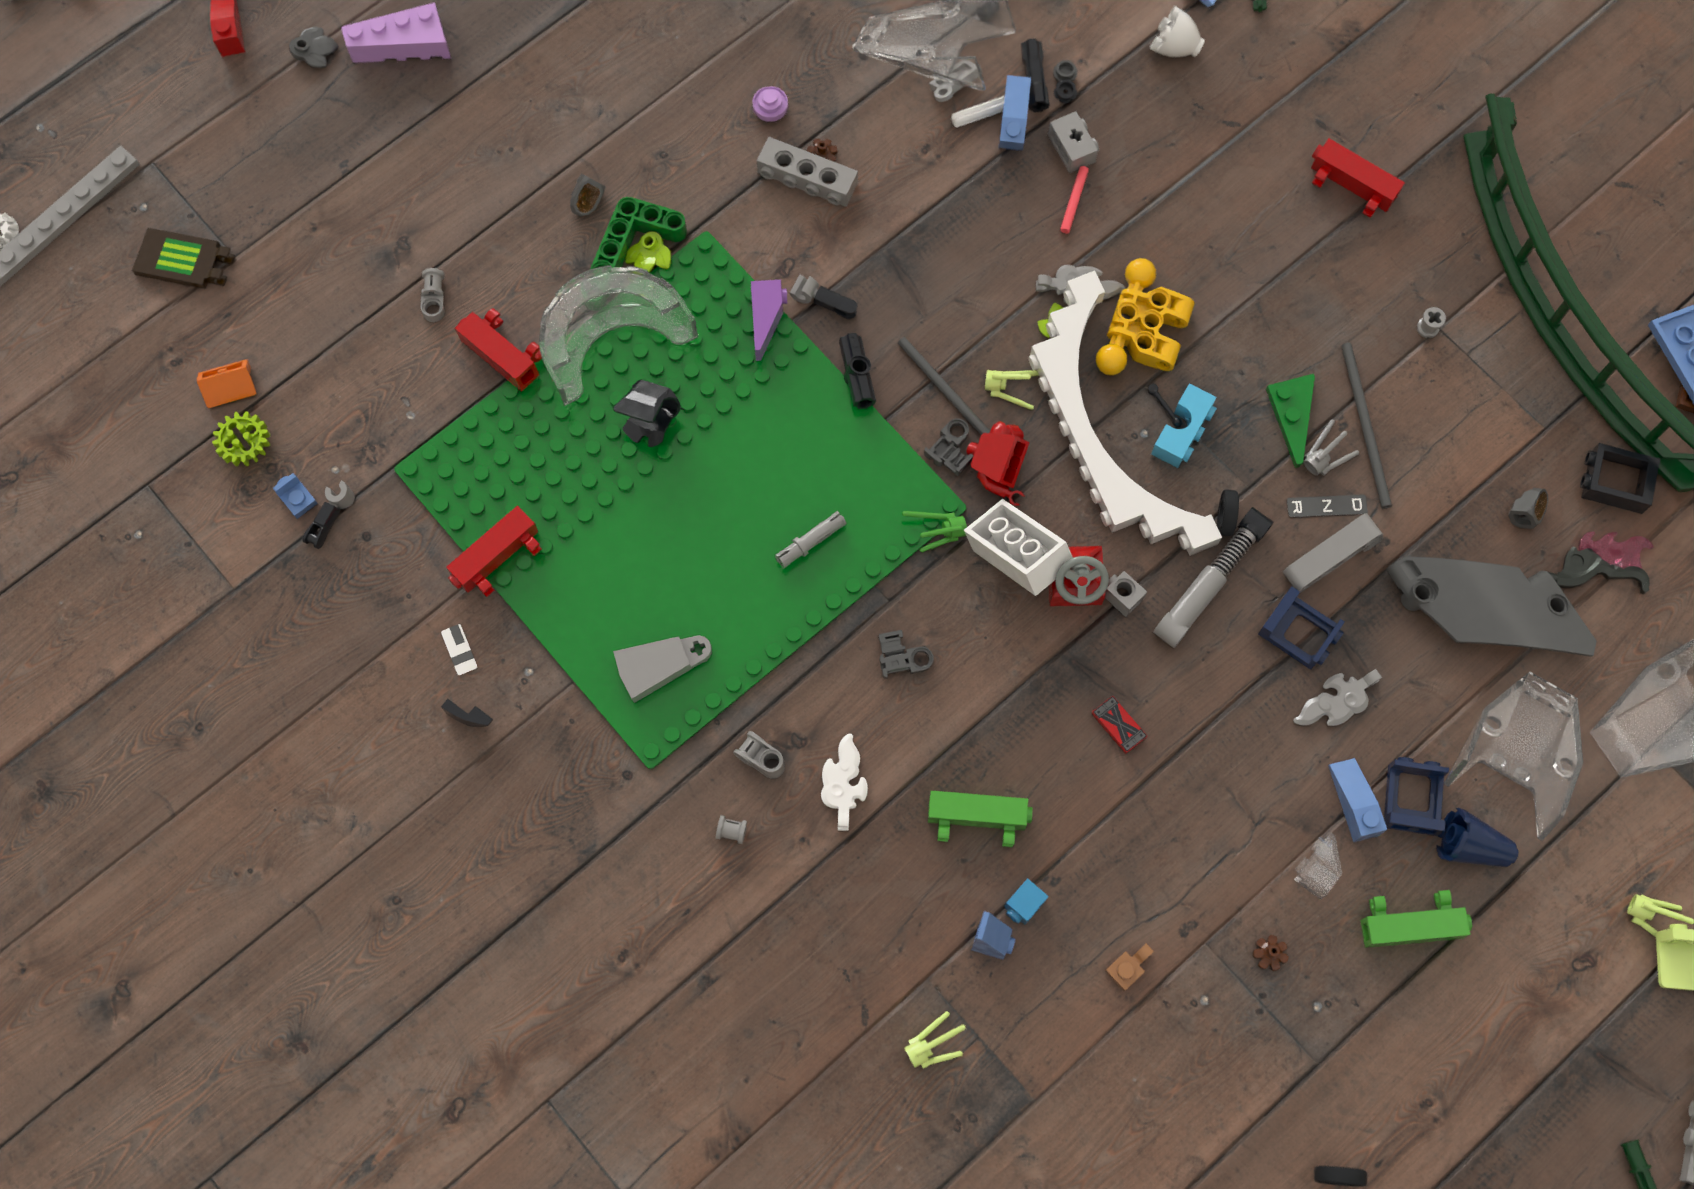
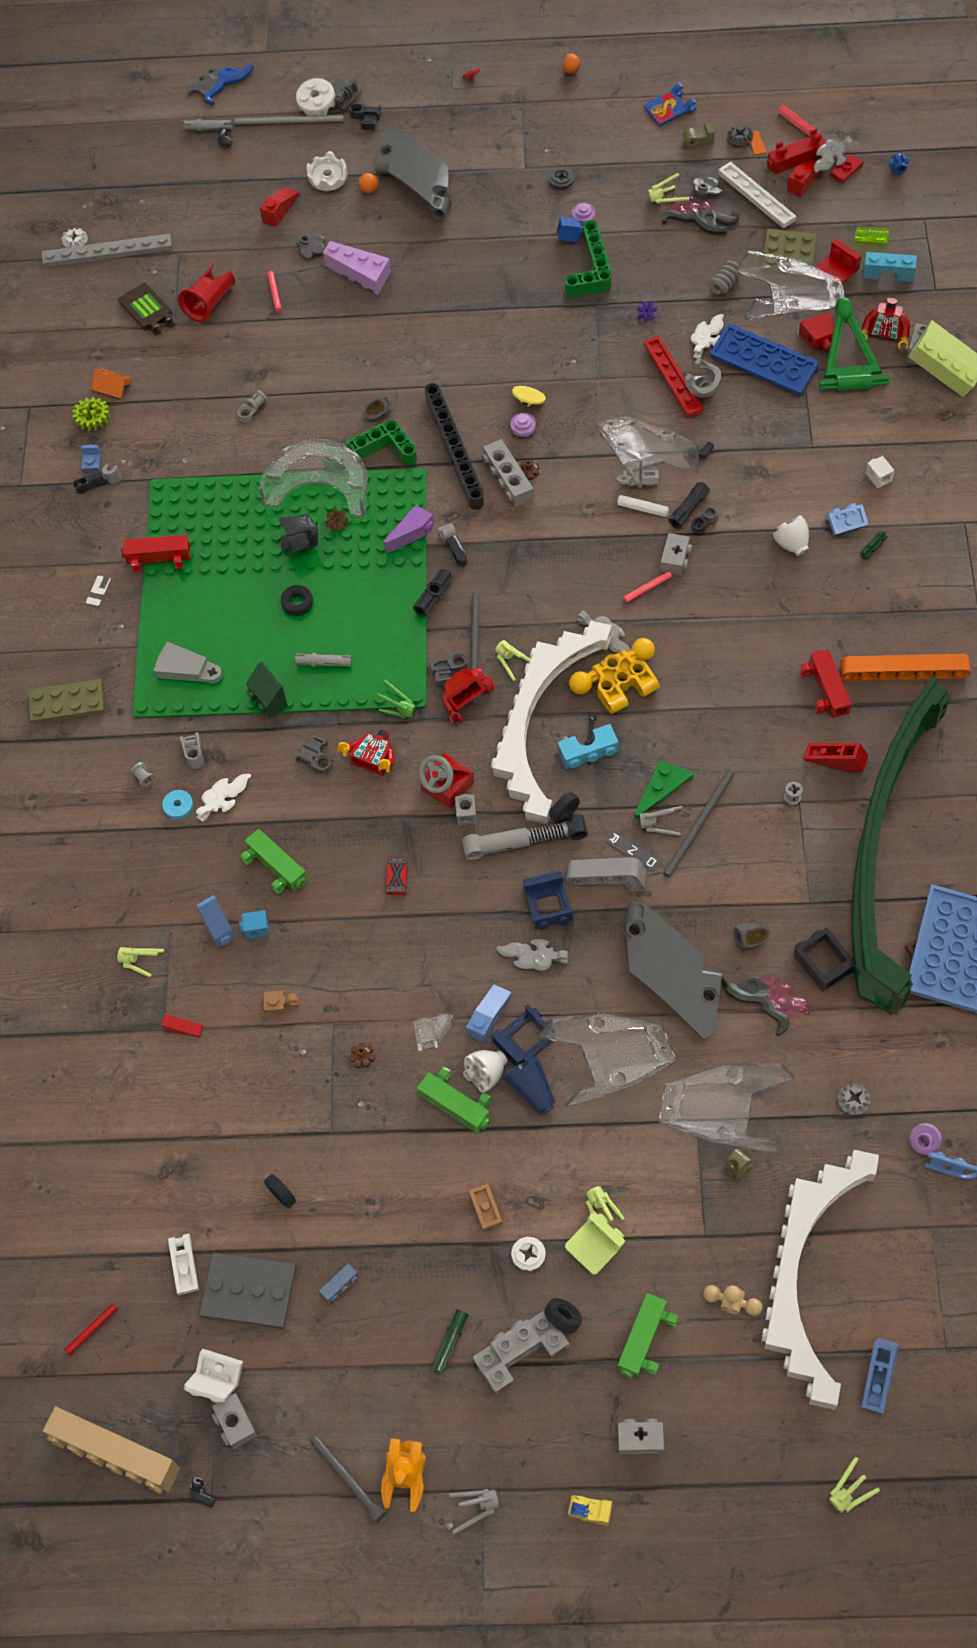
camera: 45 degrees right, 10 degrees down
(246, 196) = (205, 294): none -> red piece
(322, 134) = (274, 292): none -> coral bar
(475, 718) = (70, 624): black slope -> none
(497, 351) = (254, 452): red brick -> none
(553, 811) = (66, 701): none -> olive plate
(647, 256) = (382, 459): lime plate -> none
(671, 362) = (336, 519): none -> reddish brown plant
(714, 476) = (296, 590): none -> black tyre
(722, 190) = (454, 446): none -> black beam
(745, 64) = (528, 395): none -> light yellow piece
(788, 624) = (266, 691): none -> dark green slope
(803, 820) = (178, 812): none -> medium azure piece
(967, 606) = (370, 752): none -> torso
(1015, 112) = (653, 516): medium blue slope -> none
(1018, 546) = (423, 736): white brick -> none
(1054, 1081) = (181, 1026): none -> red piece
(1411, 104) = (905, 667): none -> orange beam
(1414, 865) = (484, 1068): none -> white piece
(1434, 249) = (838, 755): none -> red slope
(1548, 1011) = (485, 1207): none -> medium nougat plate
(1643, 1031) = (524, 1245): none -> white gear

